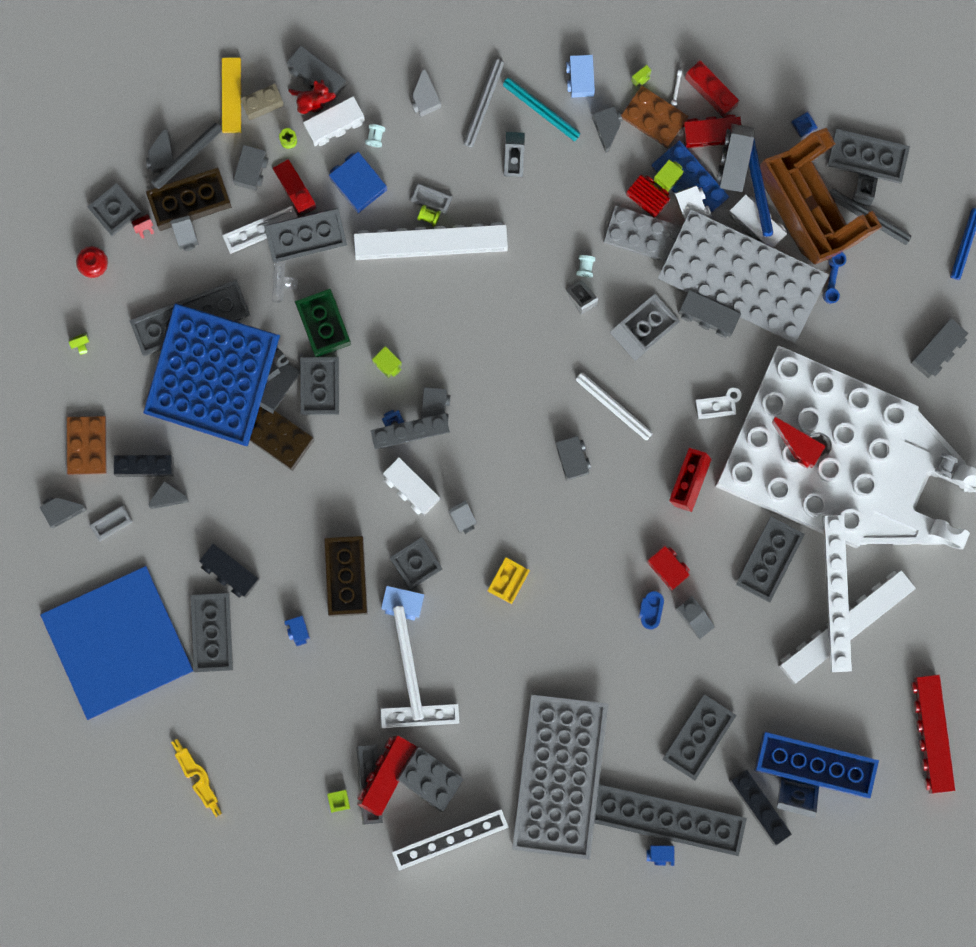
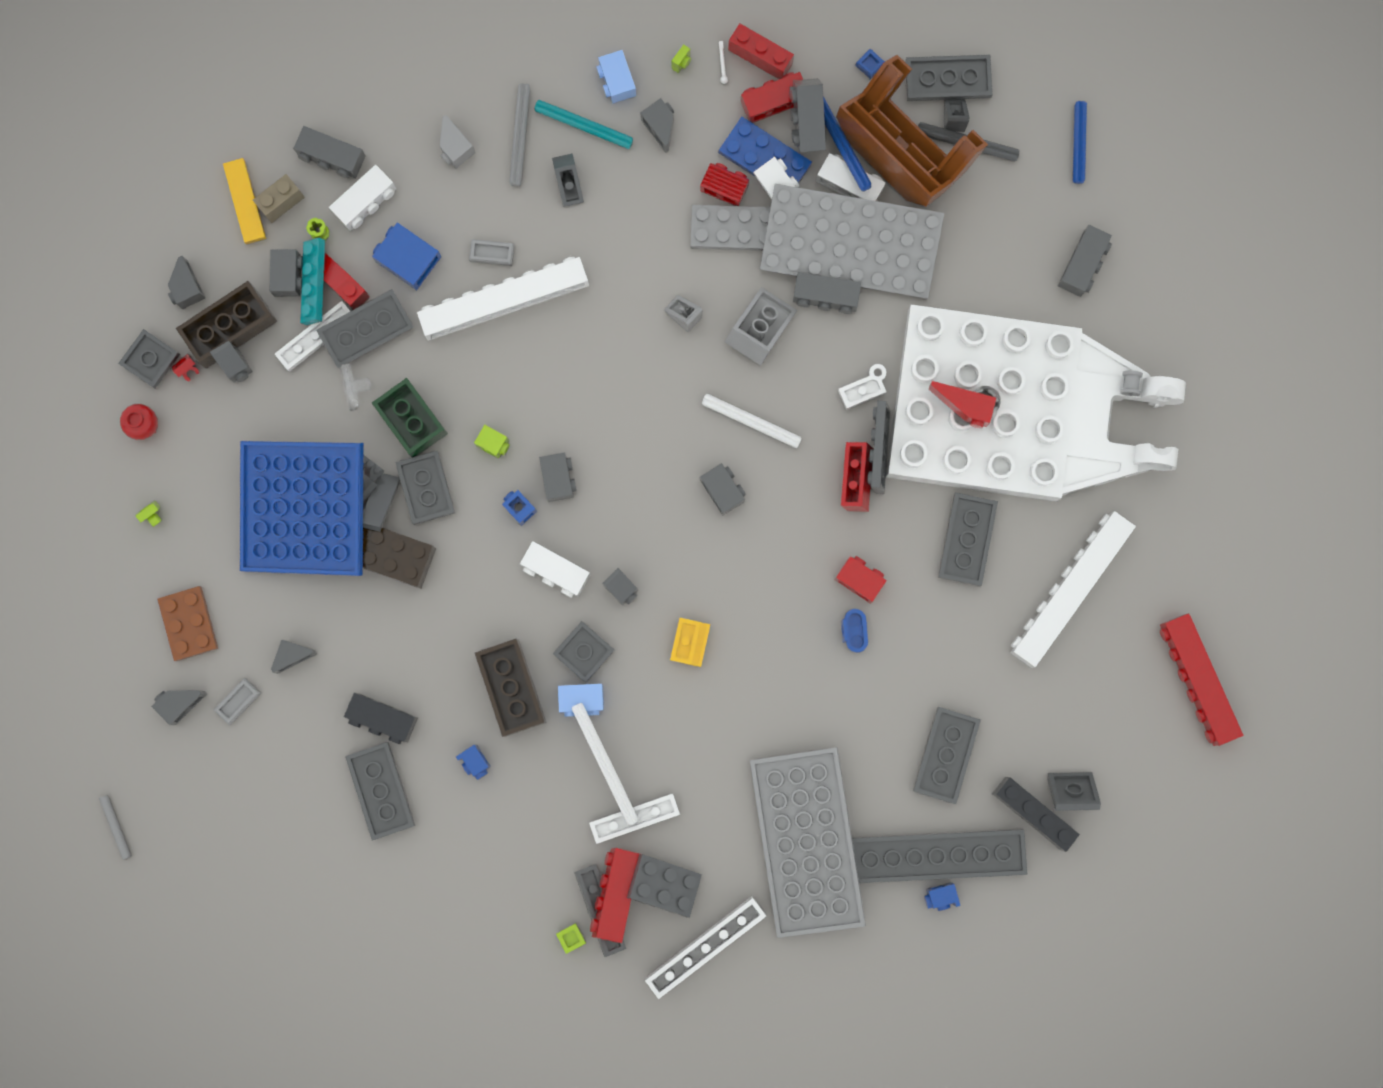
camera: 10 degrees left, 0 degrees up
(116, 643) = (278, 832): blue tile -> none
(143, 465) = (255, 628): black brick -> none
(186, 156) = (211, 278): dark grey axle -> none
(190, 769) = (416, 965): yellow piece -> none
(221, 301) = (294, 424): dark grey plate -> none
(271, 182) = (312, 281): none -> teal plate
(312, 99) = (332, 180): red animal -> none
(375, 135) = (411, 201): light aqua bush -> none
(410, 431) = (536, 509): dark grey plate -> none
(429, 215) = (494, 271): lime bush -> none
(585, 266) = (678, 278): light aqua bush -> none
(654, 116) = (707, 99): dark orange plate -> none
(669, 175) = (741, 155): lime brick -> none
(695, 617) = (904, 625): dark grey slope -> none
(714, 466) = (878, 456): none -> dark grey plate
(816, 765) = (1084, 750): blue brick -> none
(832, 295) = (952, 235): blue bar -> none
(837, 593) = (1054, 555): white brick -> none

